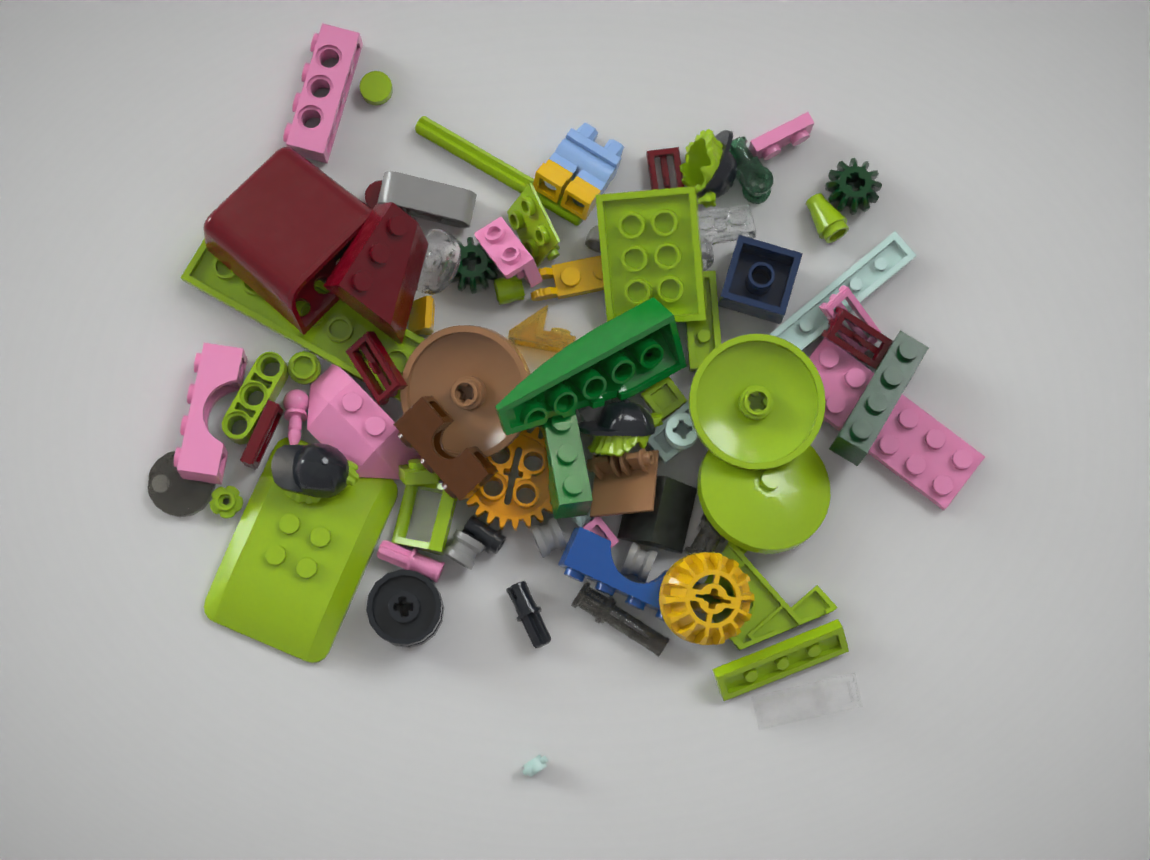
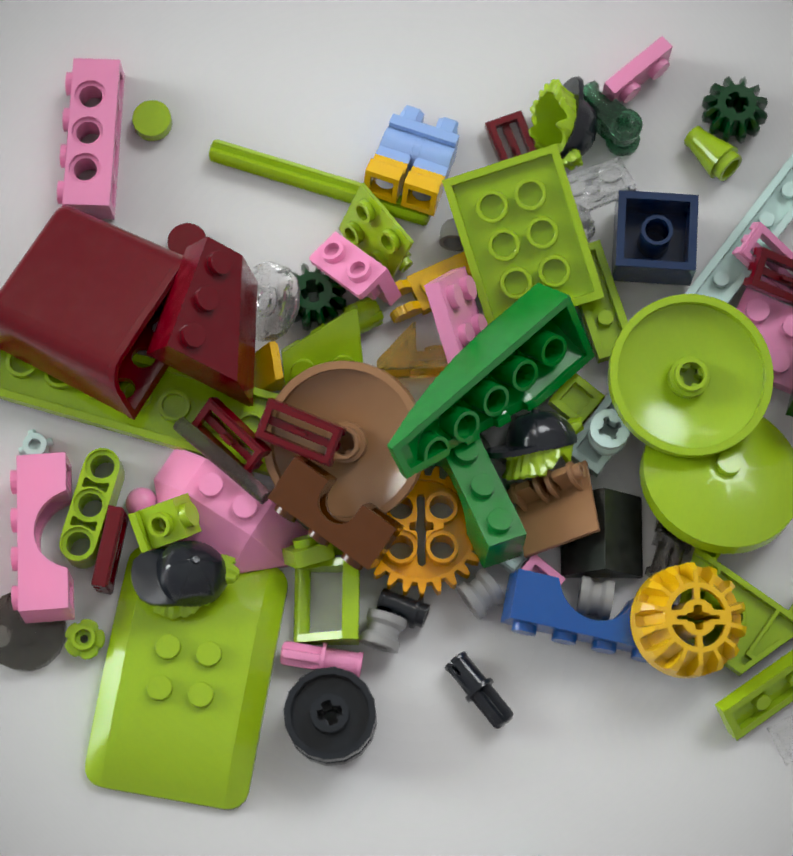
camera: 10 degrees left, 5 degrees down
(222, 335) = (35, 443): none -> light aqua piece
(304, 367) = (142, 460): lime plate -> none
(309, 424) = (165, 522): none -> lime brick
(365, 384) = (222, 460): none -> clear smoke bar
(428, 199) = (247, 231): light grey beam -> none
(455, 392) = (332, 444): none -> dark red tile
(471, 308) = (328, 342): none -> lime wing
(581, 304) = (455, 310): none -> bright pink plate
(655, 642) = (637, 689): clear smoke pin -> none

